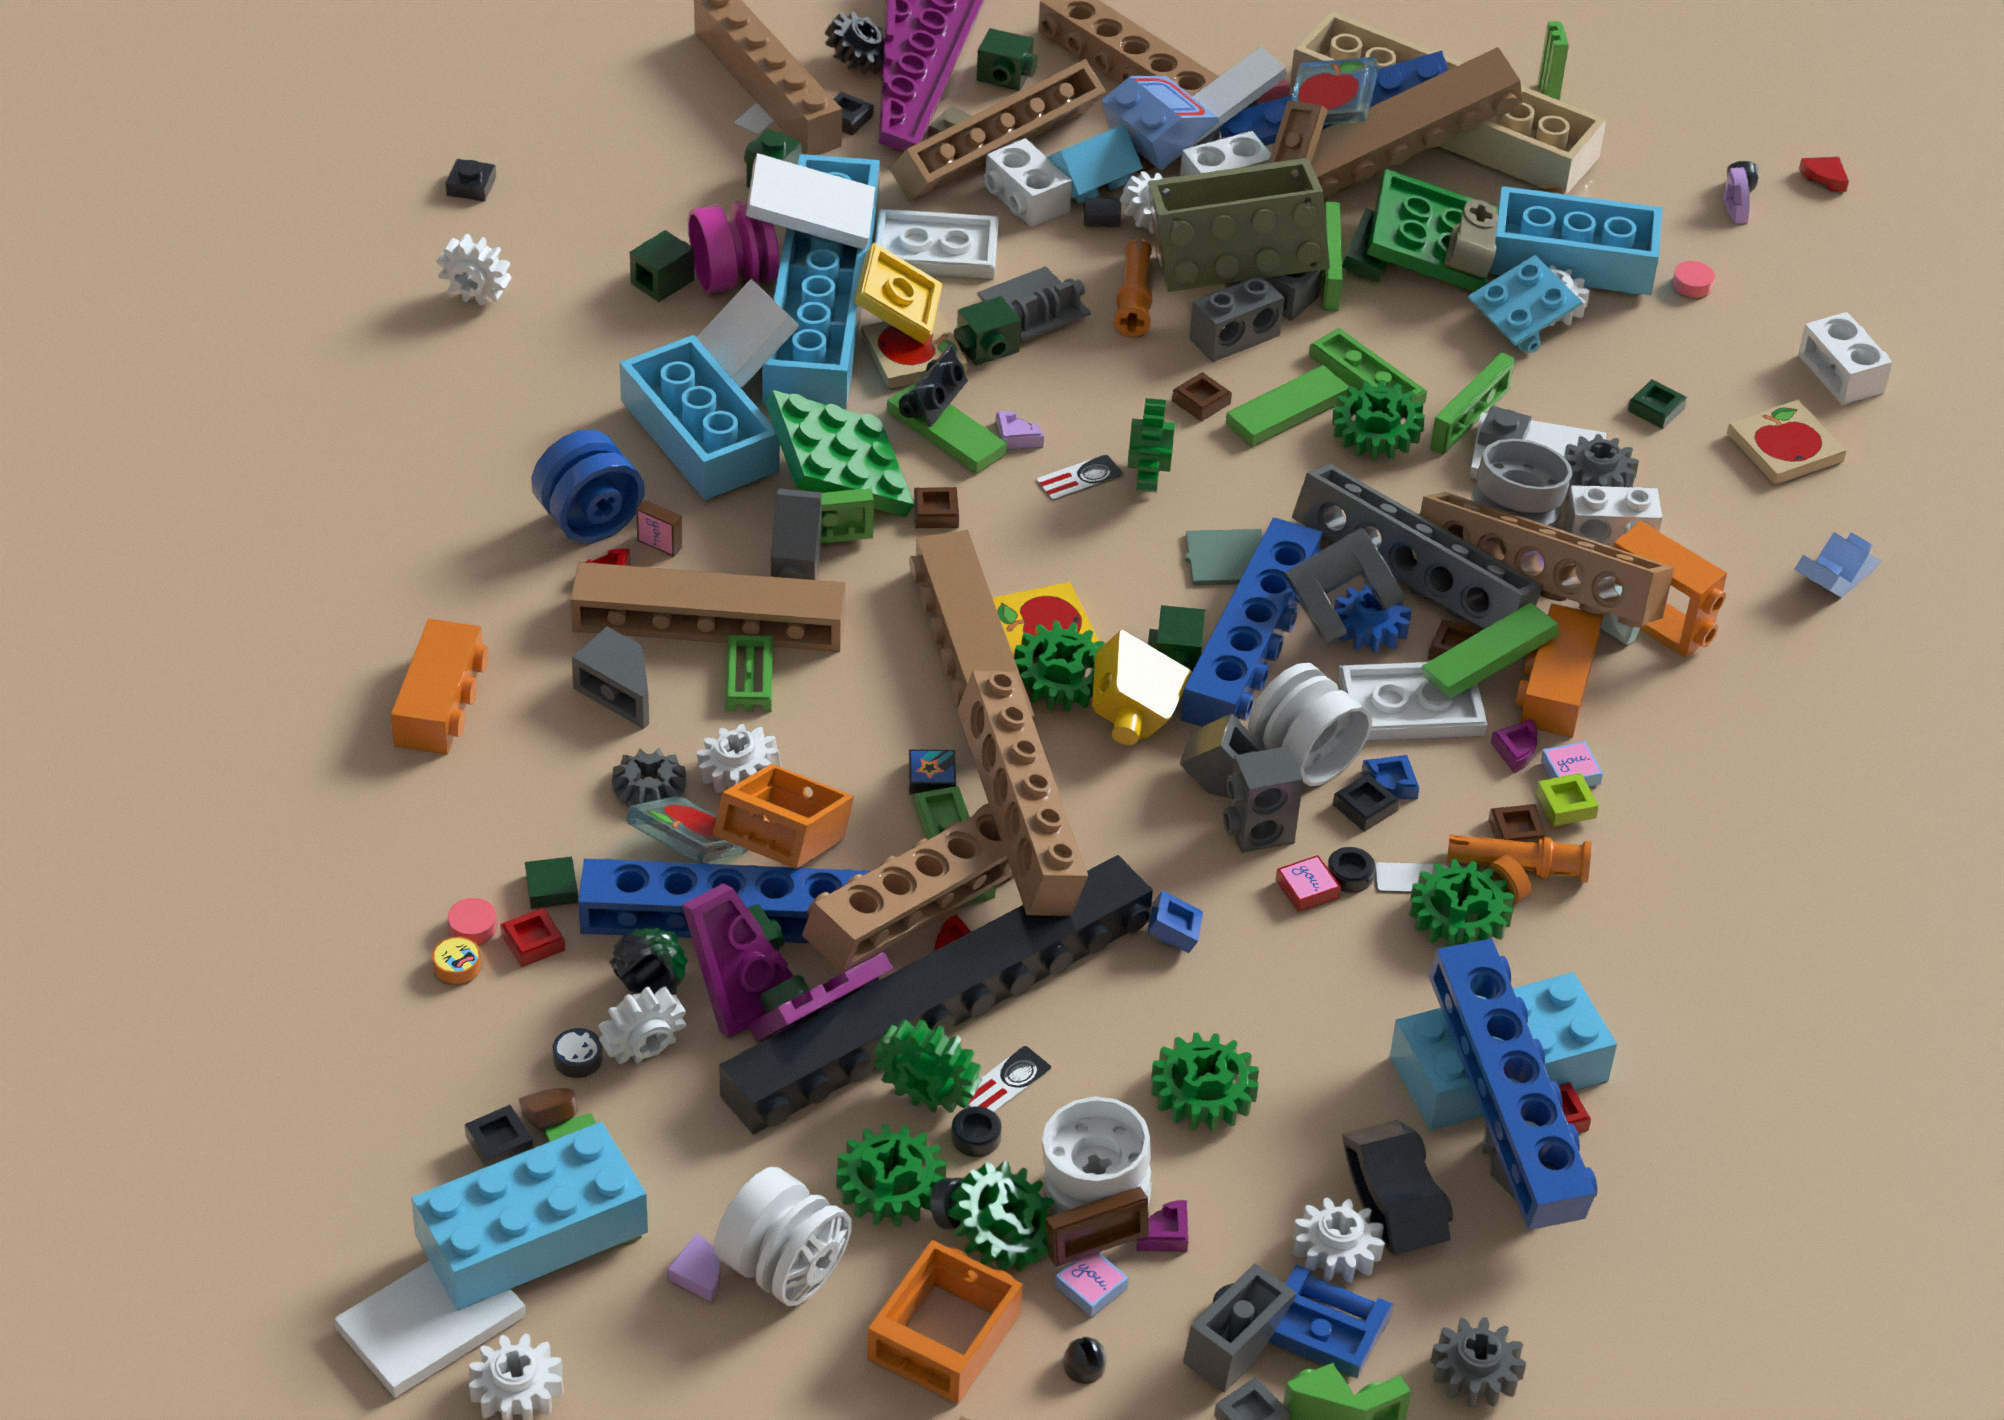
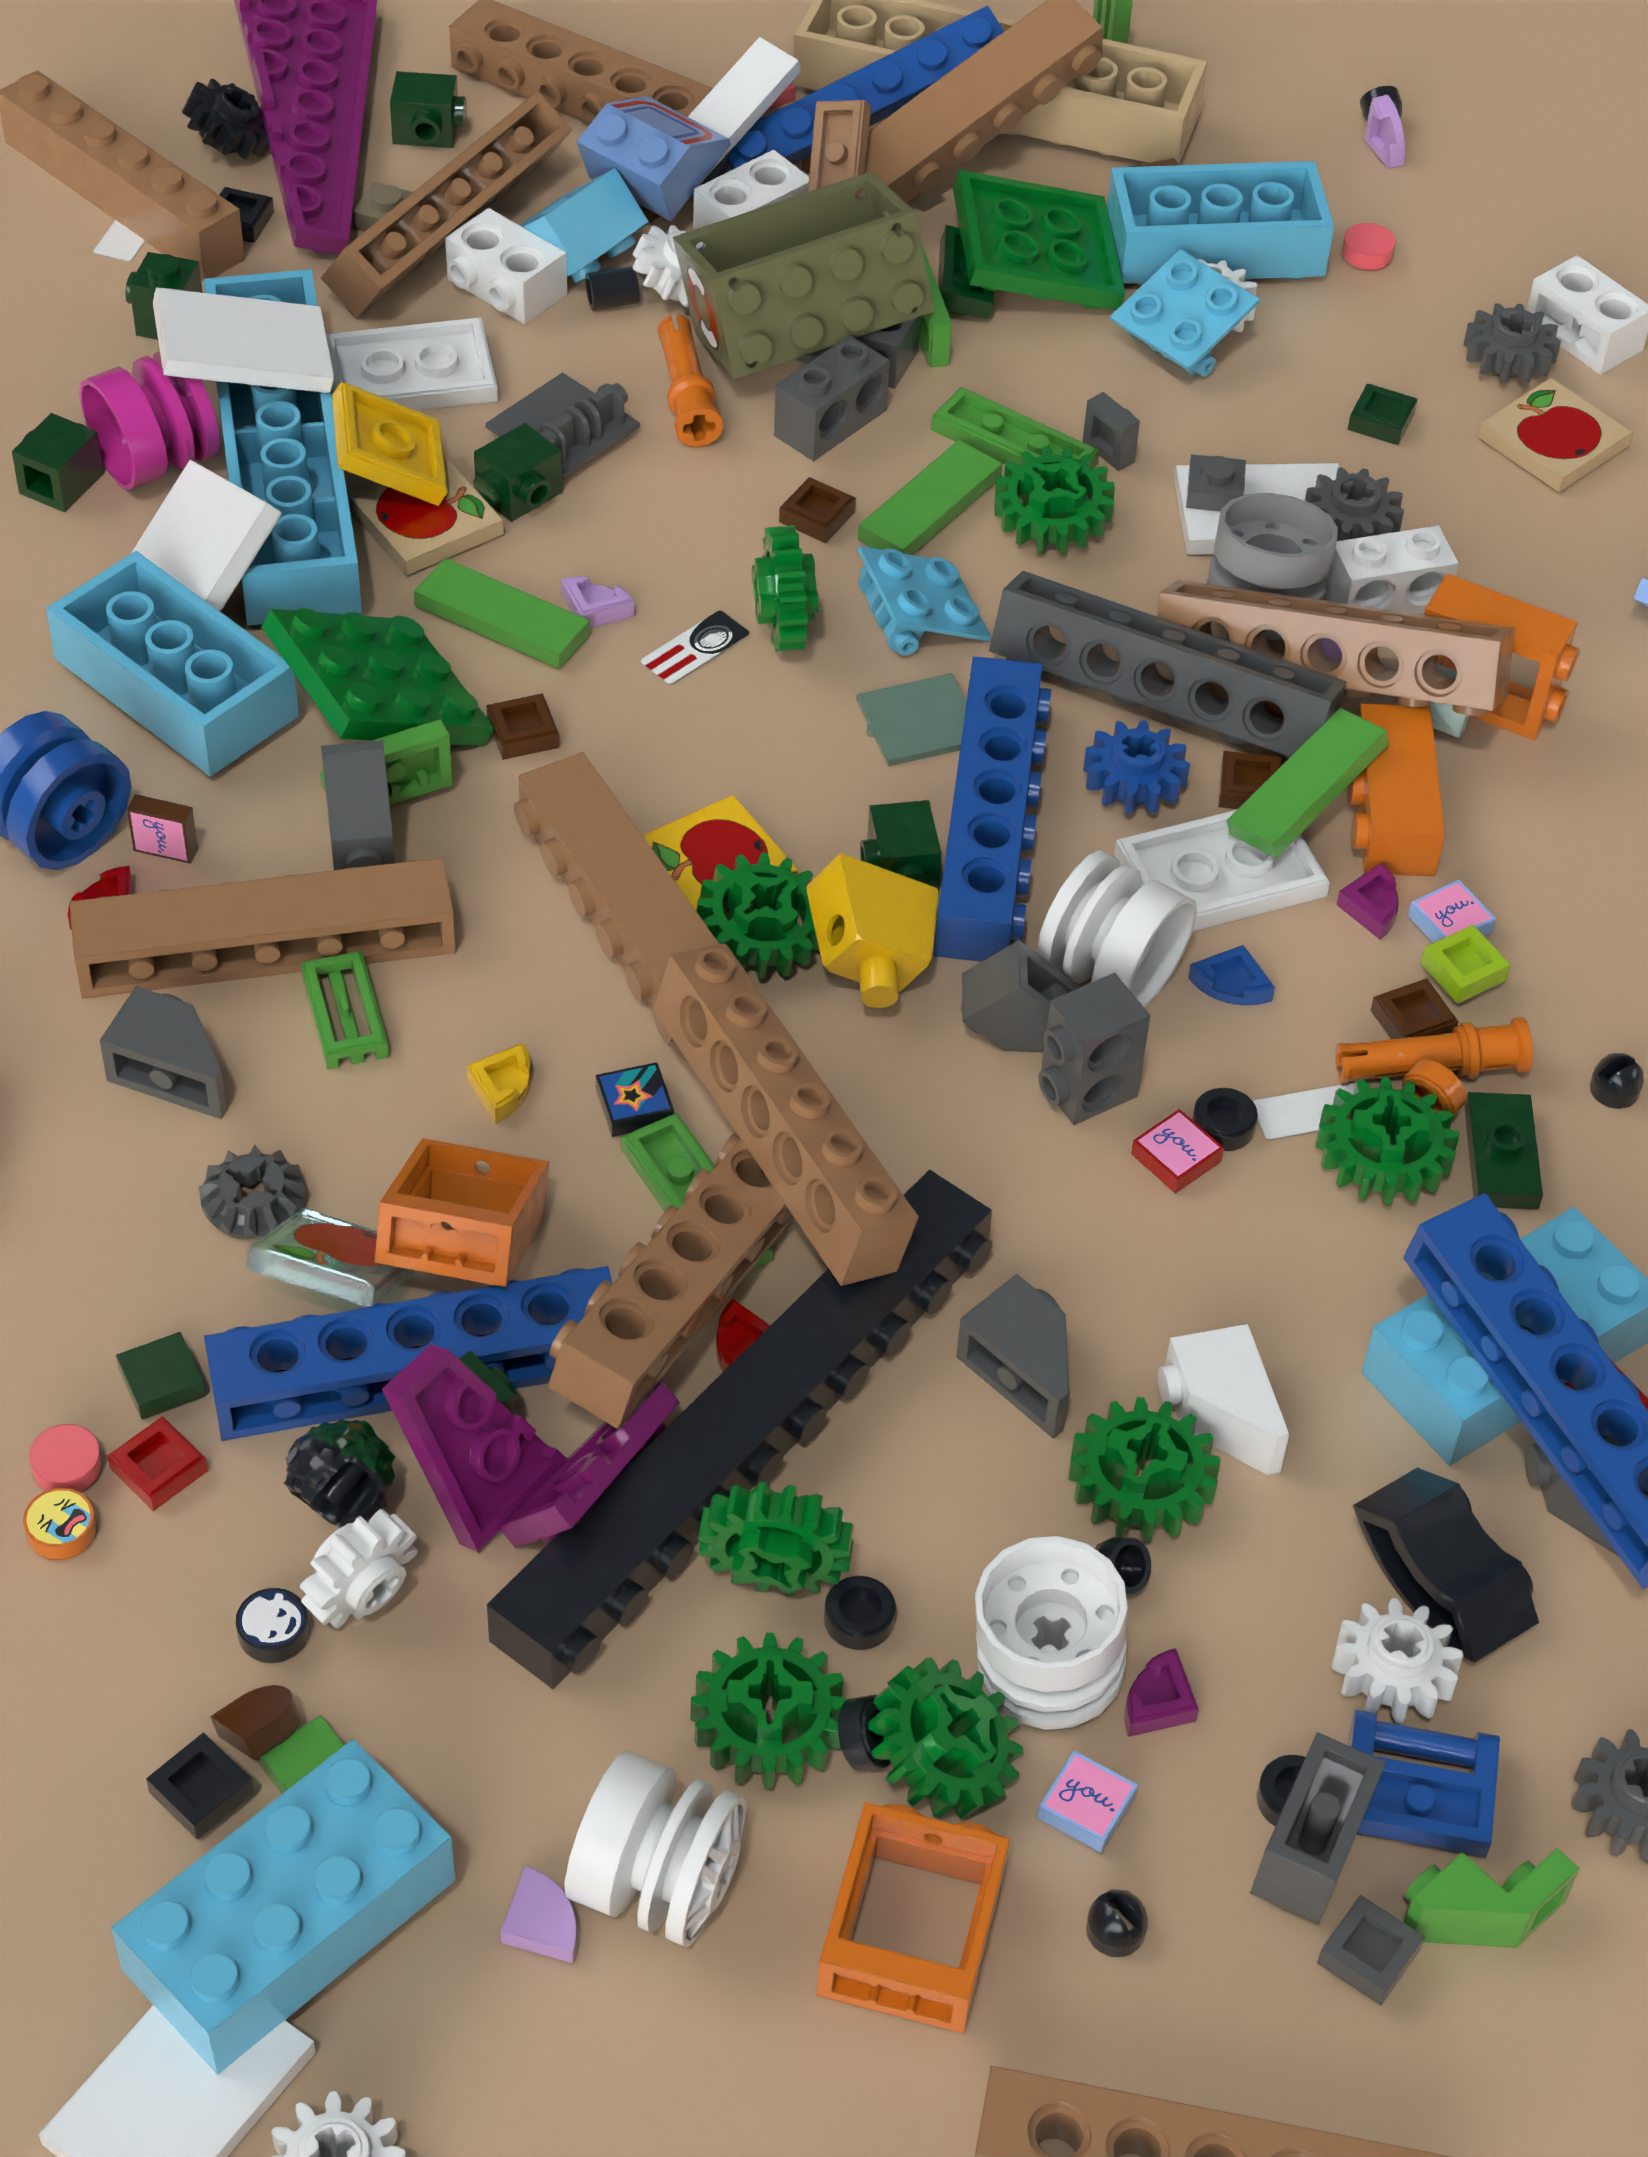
camera: 15 degrees left, 5 degrees up
(736, 756) = (369, 1138): white gear -> none
(783, 993) = (543, 1475): dark green tile -> none
(844, 741) = (502, 1080): none -> yellow tile
(935, 388) = (474, 564): black hinge -> none
(1009, 1079) = (880, 1519): sticker -> none
(1097, 1226) = (1080, 1724): reddish brown tile -> none
(1144, 986) = (1020, 1350): none -> dark grey slope
(1171, 1143) = (1130, 1560): none -> black hinge
(1175, 922) = (1028, 1245): blue plate -> none
(1253, 469) = (917, 596): none -> medium azure hinge
(1279, 1045) = (1227, 1389): none -> white slope
(1335, 567) = (1082, 712): dark grey connector -> none
(1339, 86) = (873, 70): tile -> none
(1366, 802) = (1211, 1021): black tile -> none
(1439, 378) = (1111, 431): none -> dark grey plate
(1467, 406) = (1162, 456): bright green tile -> none
(1473, 240) = (1099, 243): dark tan piece -> none
(1548, 931) = (1503, 1149): none -> dark green plate
(1652, 902) = (1623, 1086): none -> black hinge
(1775, 368) = (1512, 342): none -> dark grey gear
(1827, 171) = (1475, 82): red tile -> none

